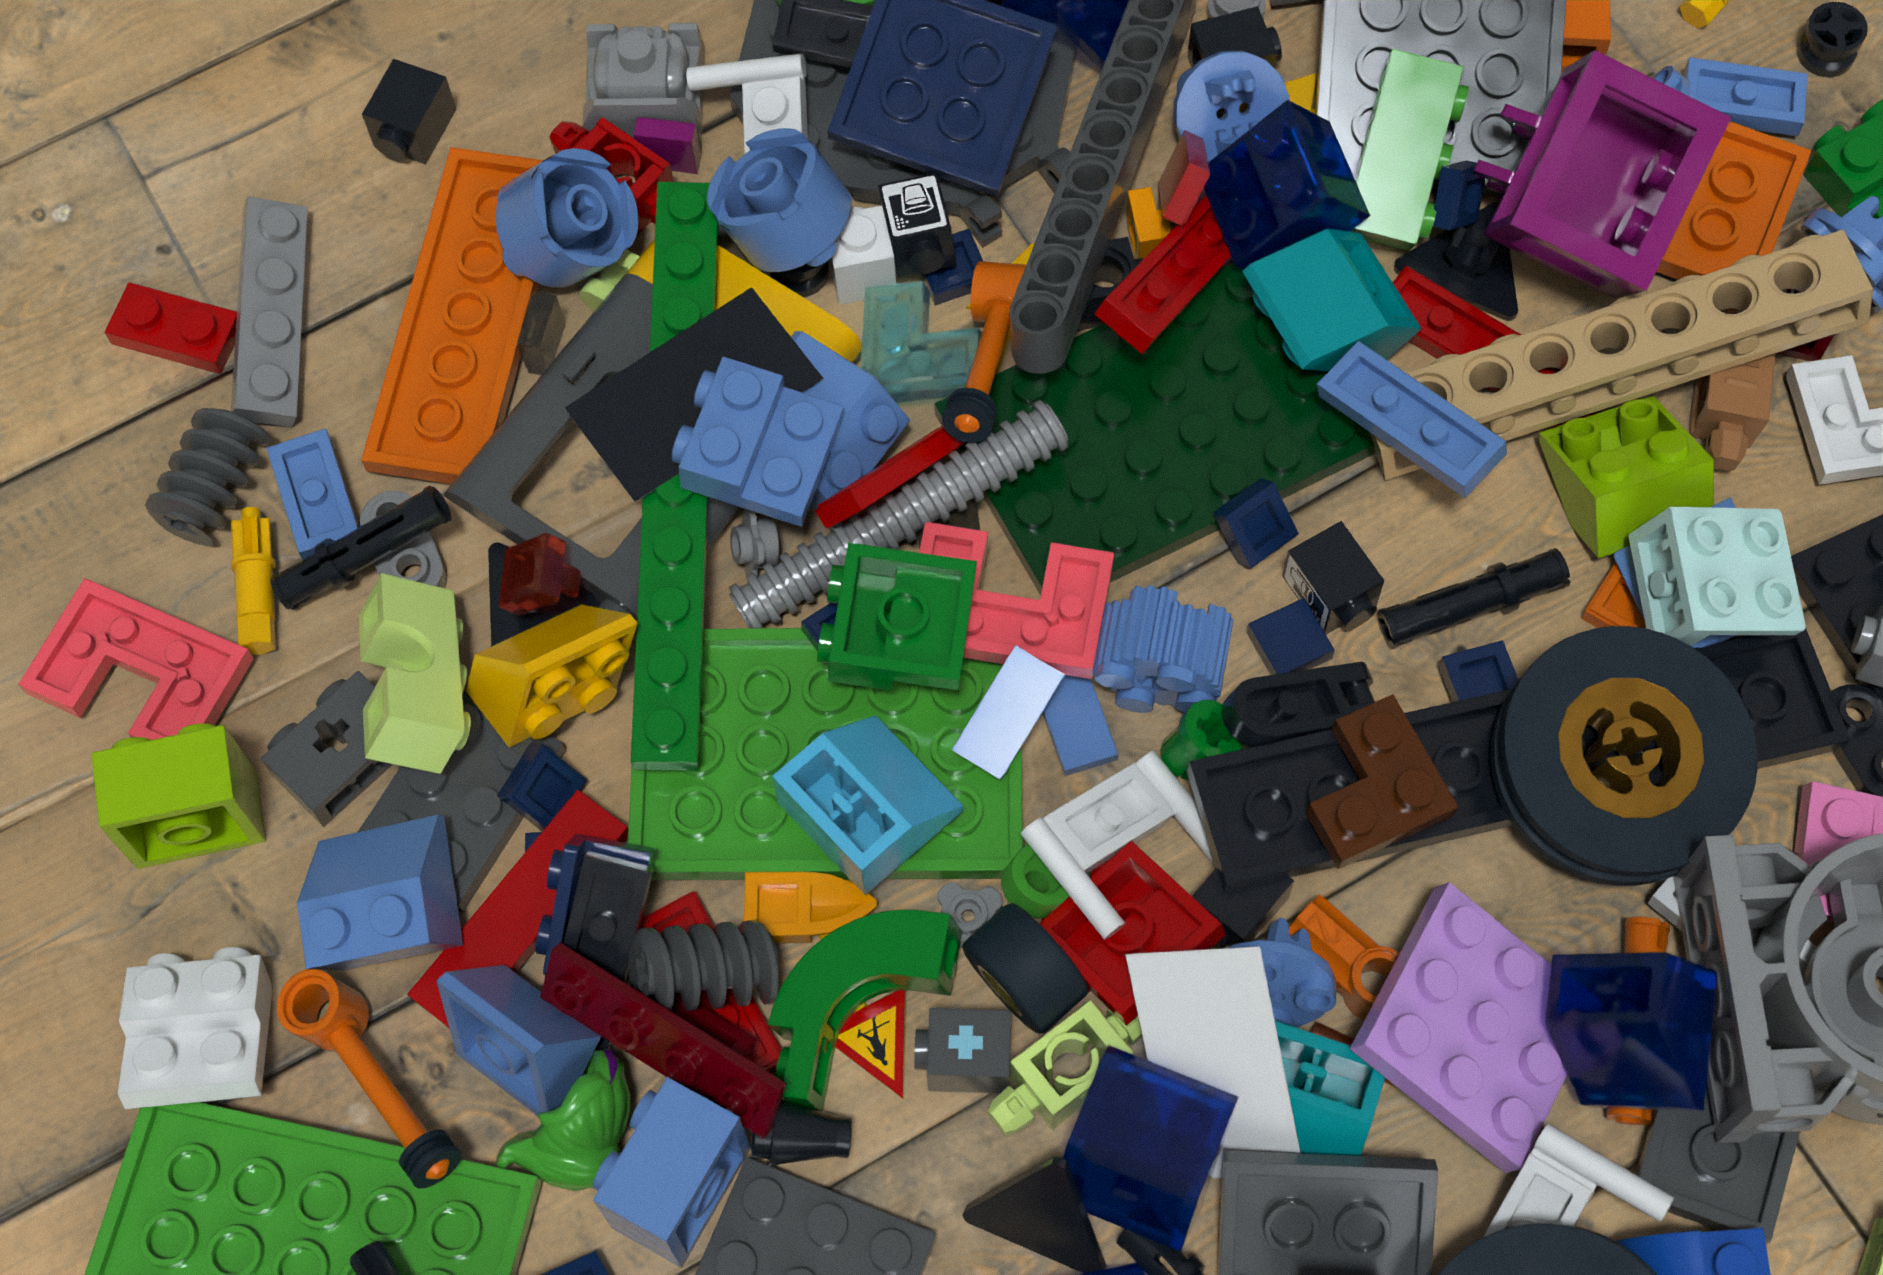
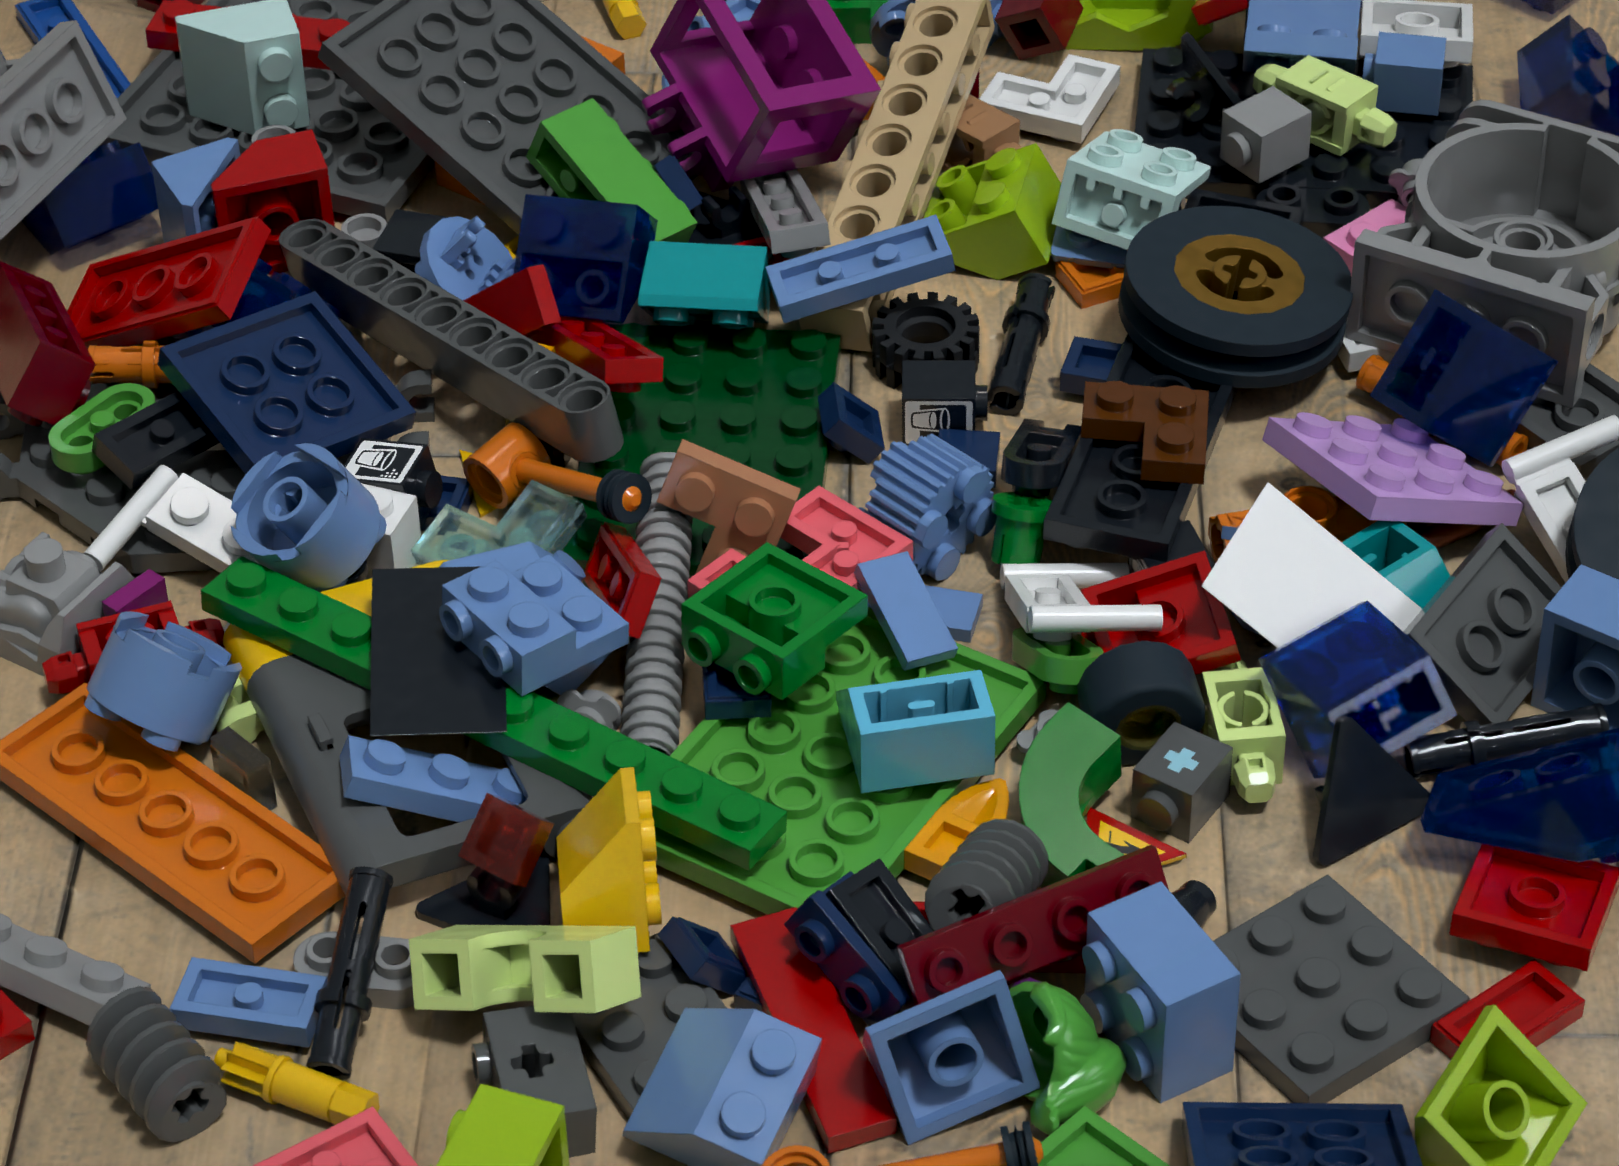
camera: 60 degrees left, 25 degrees down
(578, 475) = (421, 781): none -> medium blue plate
(1022, 523) = (734, 498): none -> nougat plate
(1406, 552) = (922, 332): none -> black tyre
(1472, 308) = (786, 213): none -> light grey plate

